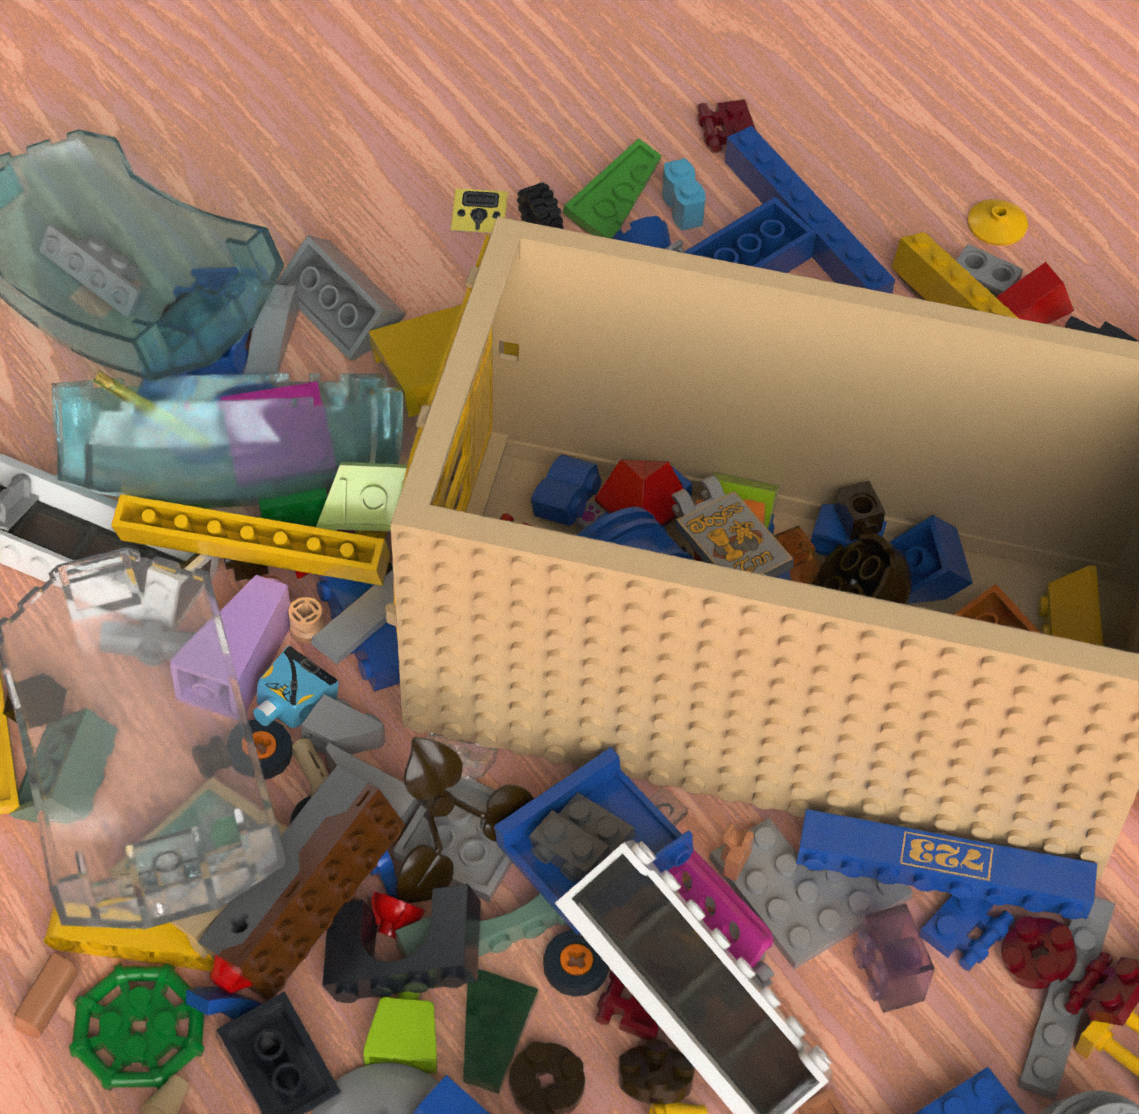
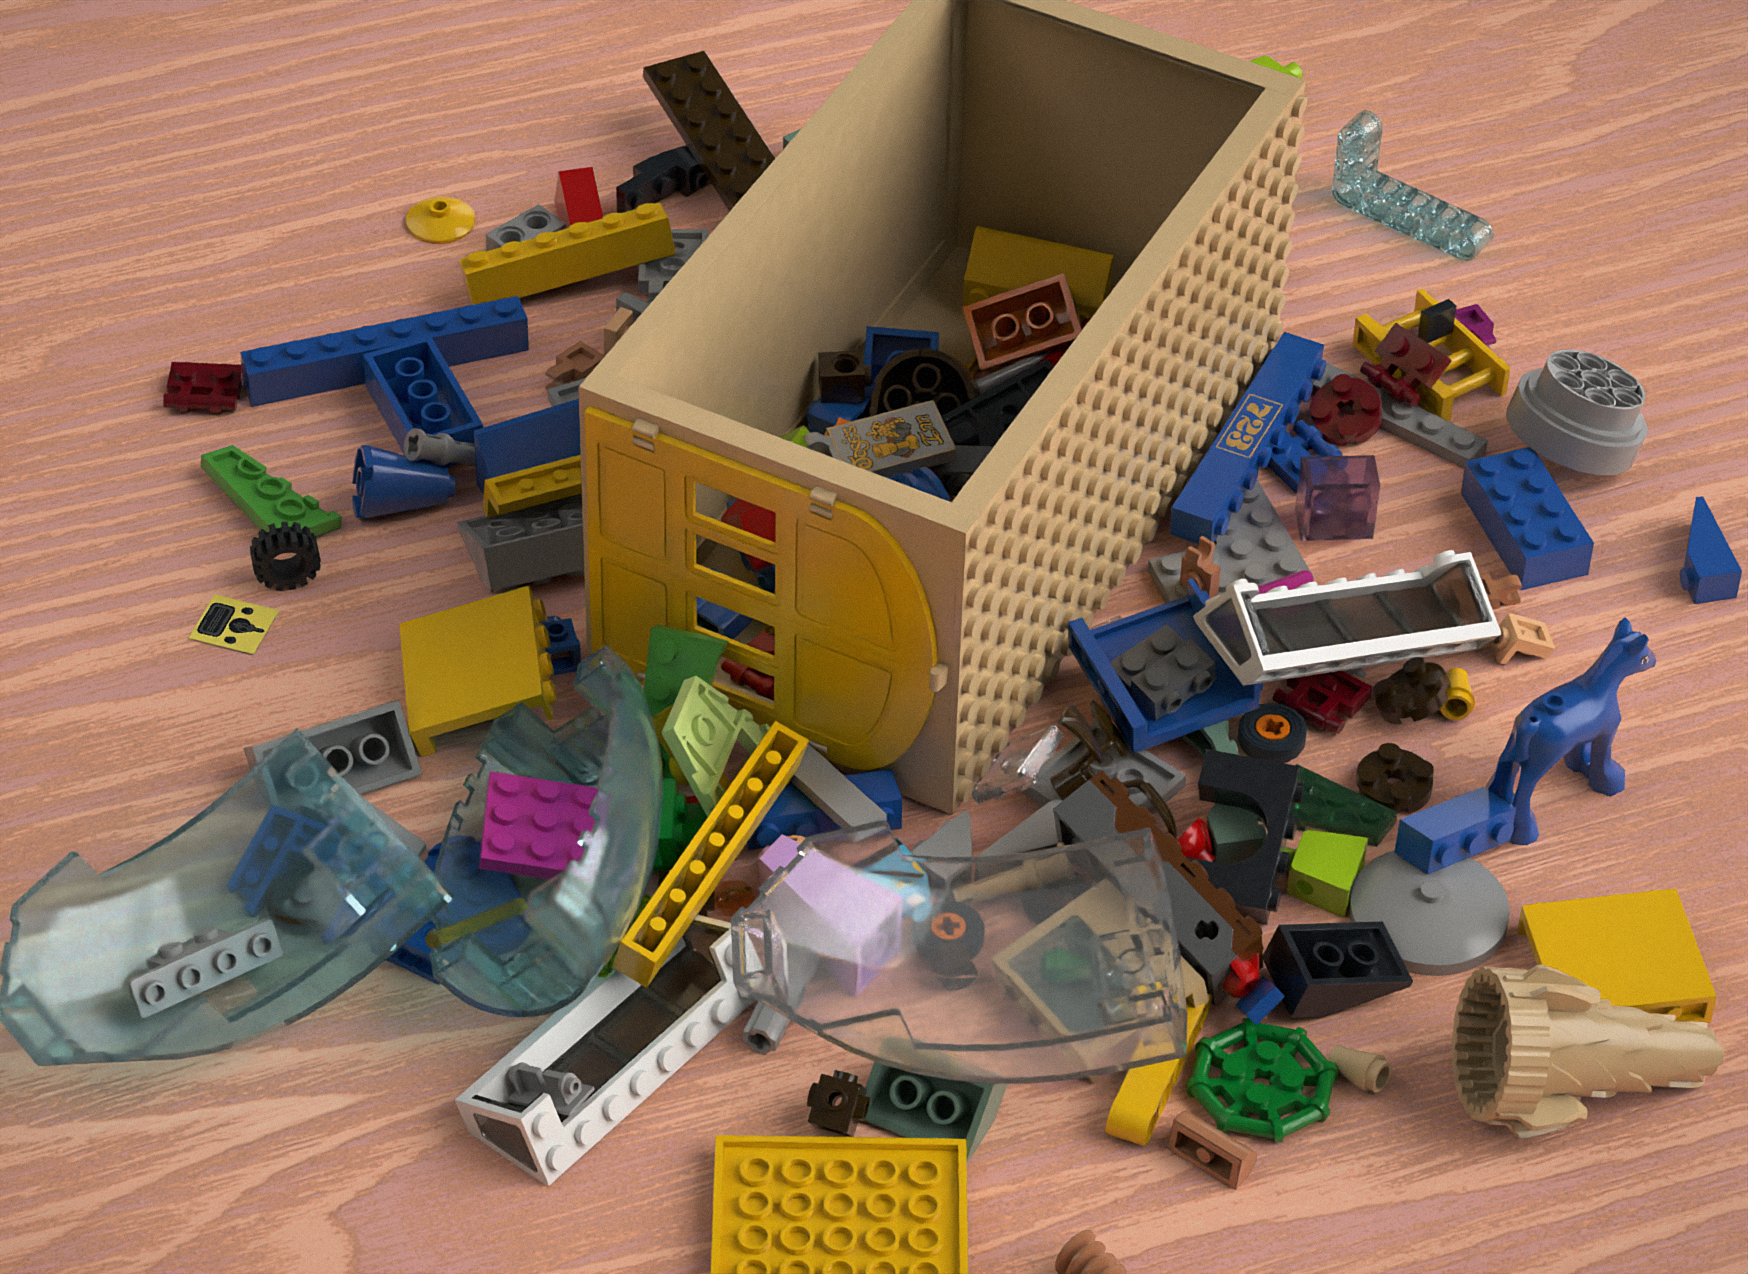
camera: 75 degrees left, 10 degrees down
(683, 194) = (303, 439): medium azure brick -> none

